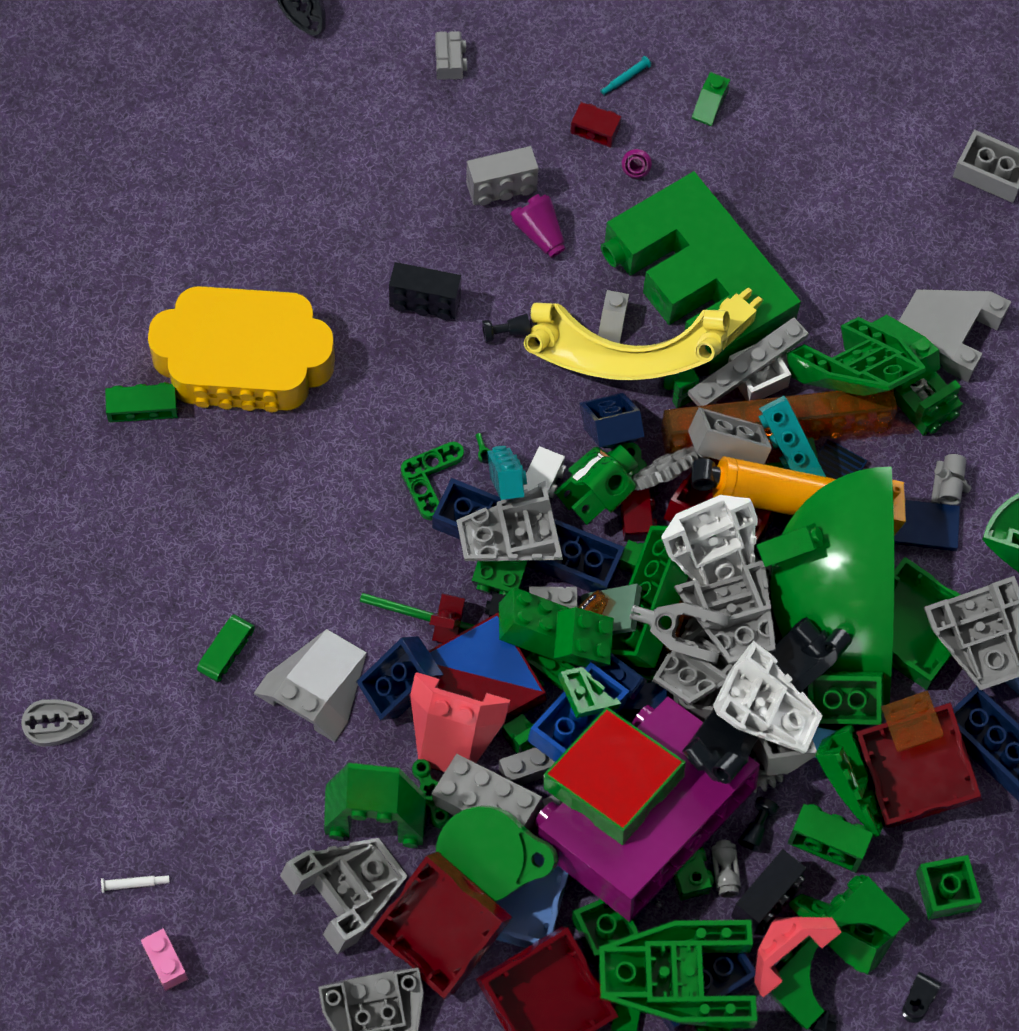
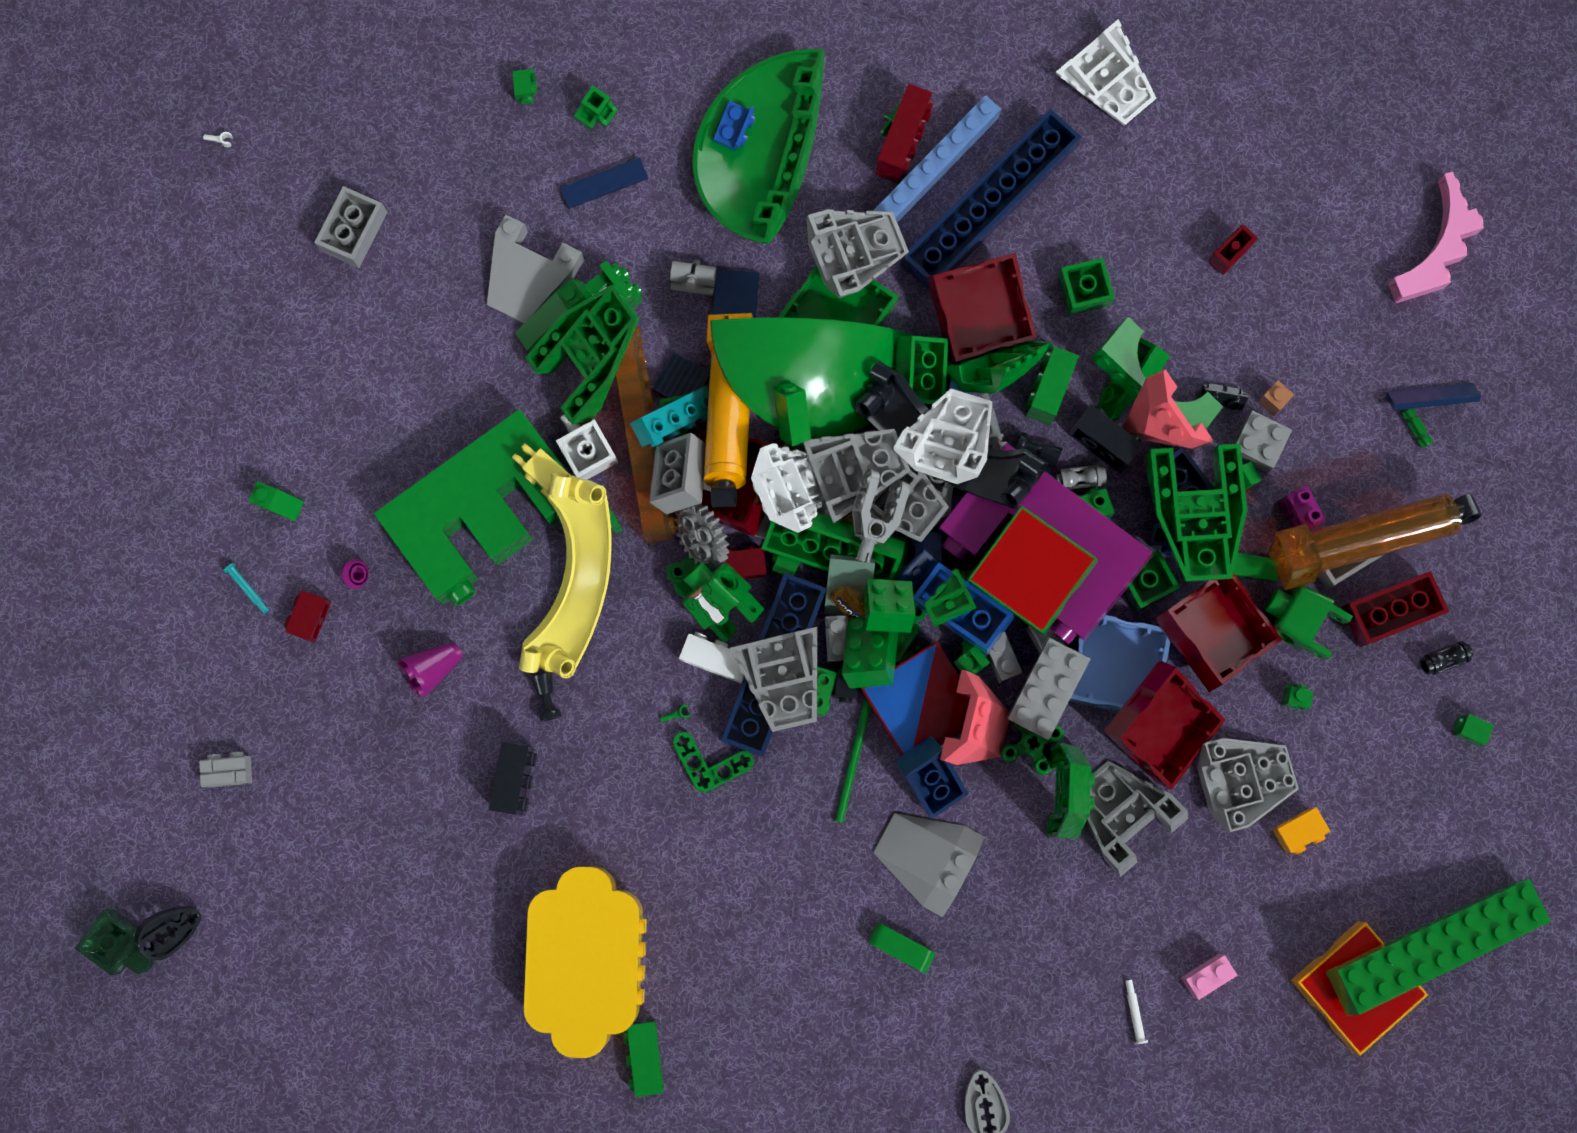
camera: 90 degrees left, 15 degrees up
(448, 618) = (863, 736): dark red bracket -> none
(494, 850) = (1103, 677): green piece -> none
(502, 176) = (376, 707): light grey brick -> none
(506, 473) = (718, 687): teal brick -> none
(612, 420) = (652, 588): dark blue brick -> none
(613, 316) = (531, 592): light grey slope -> none
(748, 363) = (586, 458): light grey plate -> none
(912, 721) = (948, 310): clear orange bracket -> none
(922, 995) = (1180, 312): black piece -> none

